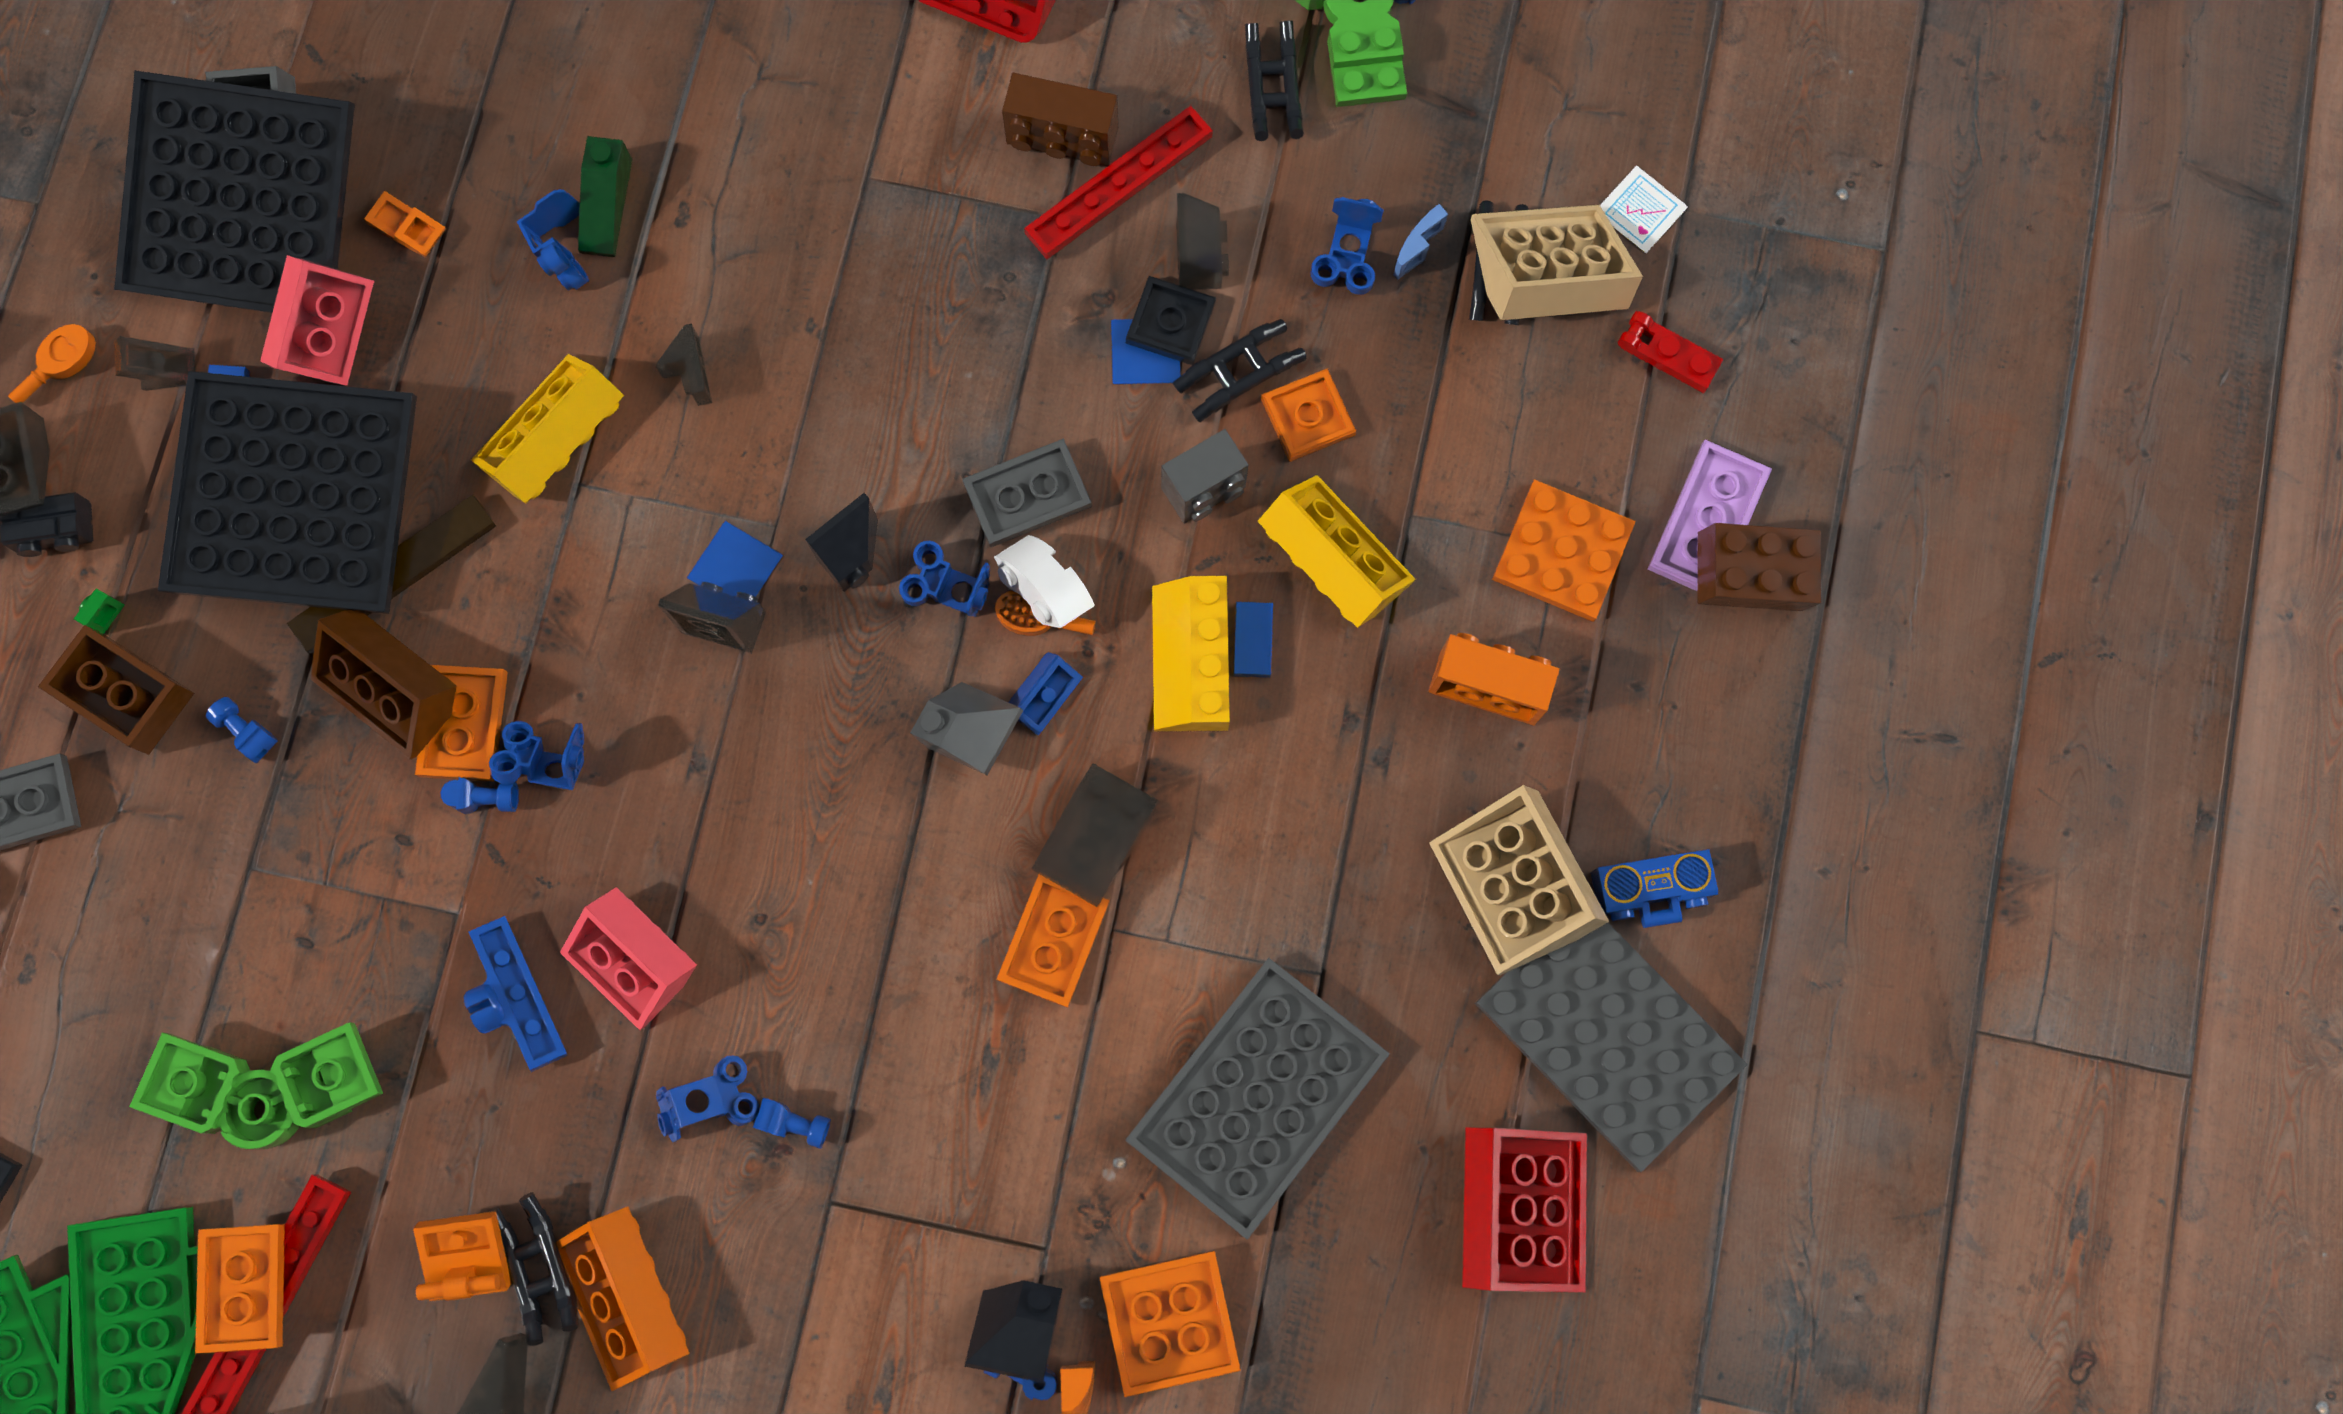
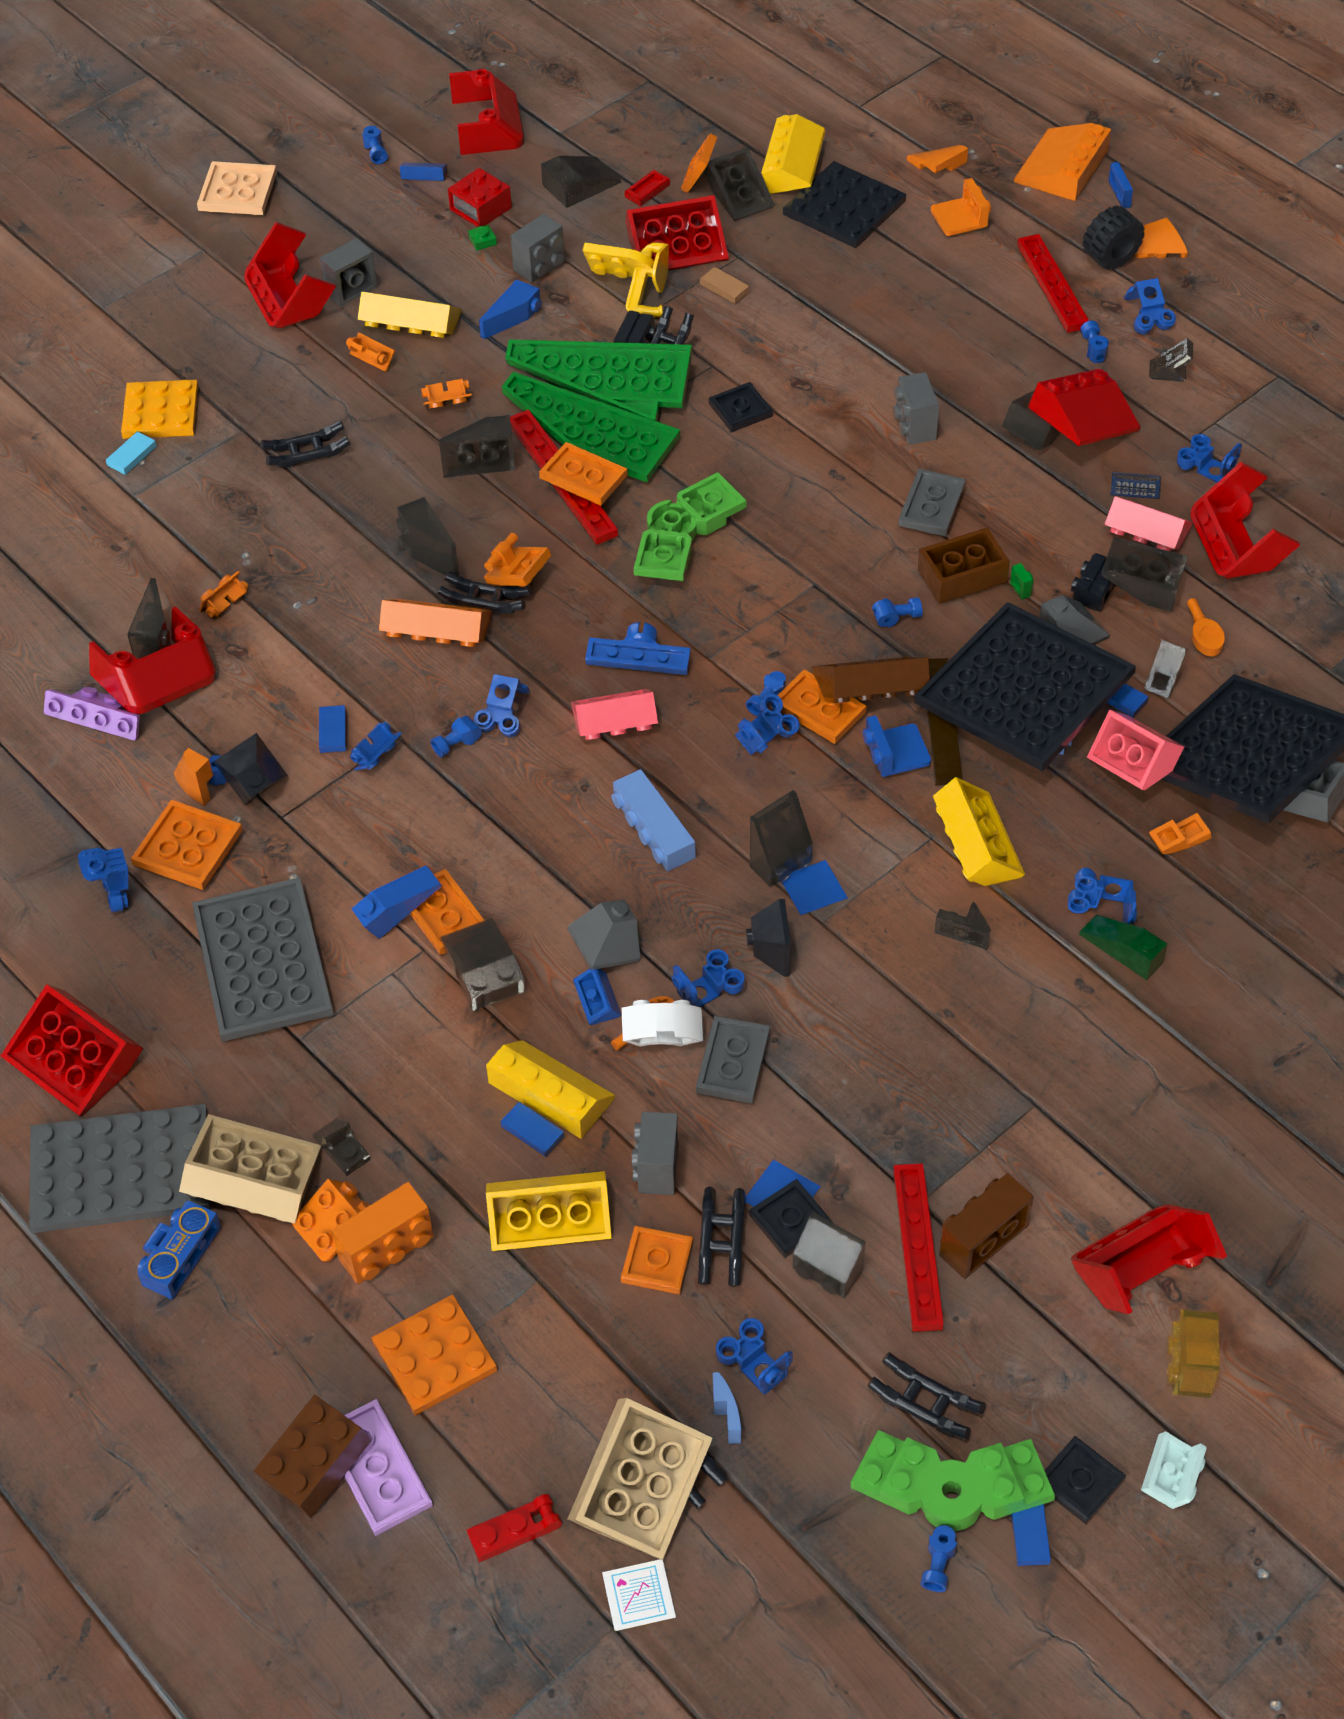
camera: 130 degrees right, 25 degrees down
(136, 514) = (1073, 618): none -> dark grey slope
(471, 593) = (895, 748): none -> blue bracket
(764, 794) = (653, 820): none -> medium blue brick
(877, 1293) = (332, 729): none -> blue tile
(889, 1205) = (382, 741): none -> blue hinge
(1084, 991) = (395, 900): none -> blue slope
(1299, 1363) = (111, 869): none -> blue piece
(1415, 821) = (342, 1146): none -> clear smoke slope
(1501, 751) = (324, 1211): none -> orange bracket

